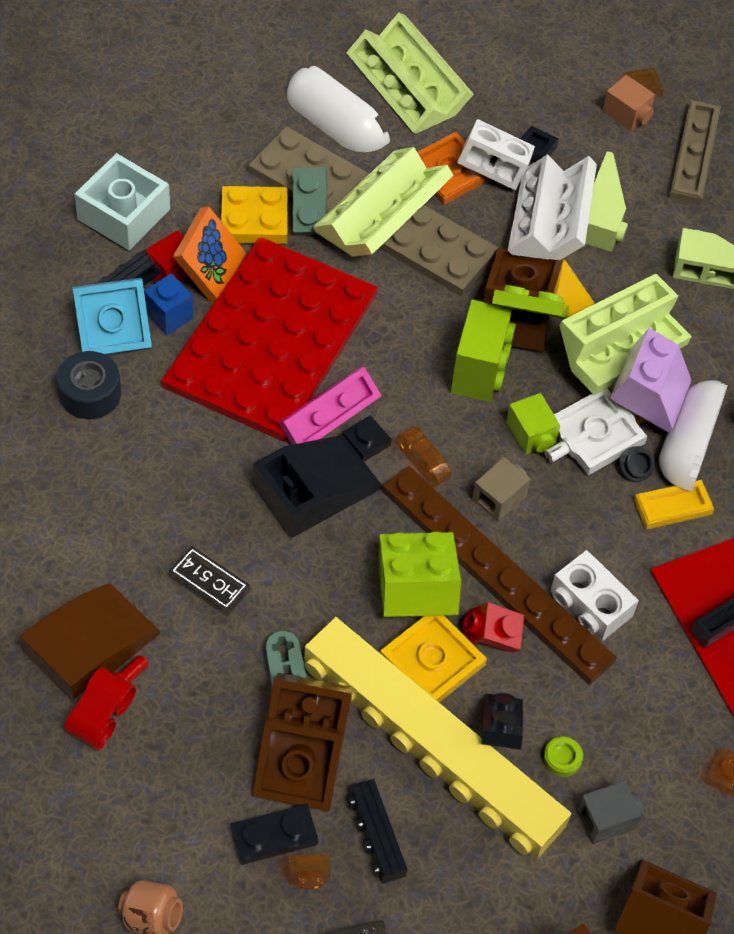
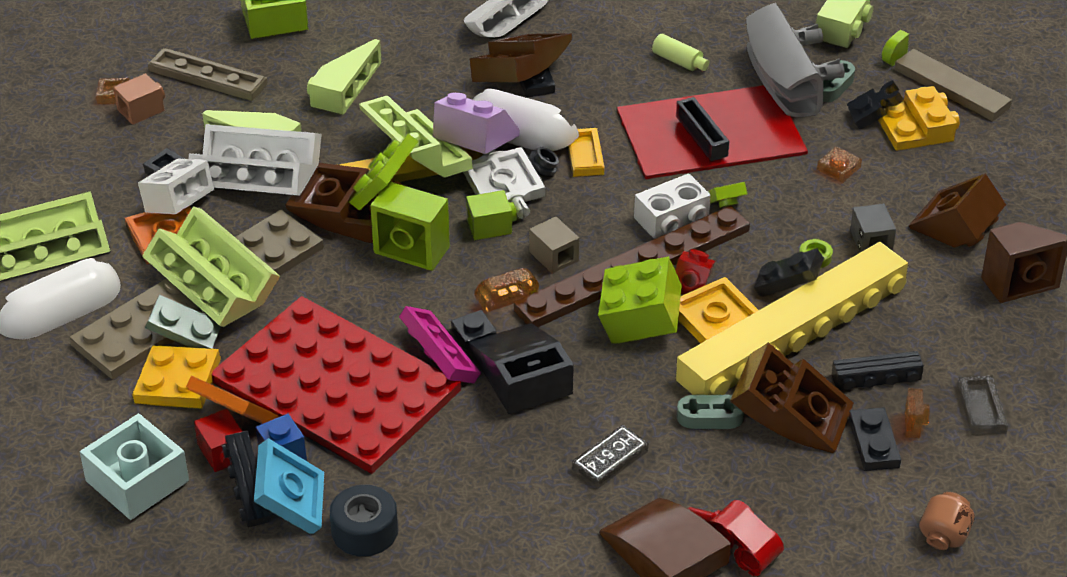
camera: 75 degrees left, 15 degrees down
(632, 650) = (727, 194): none -> lime plate

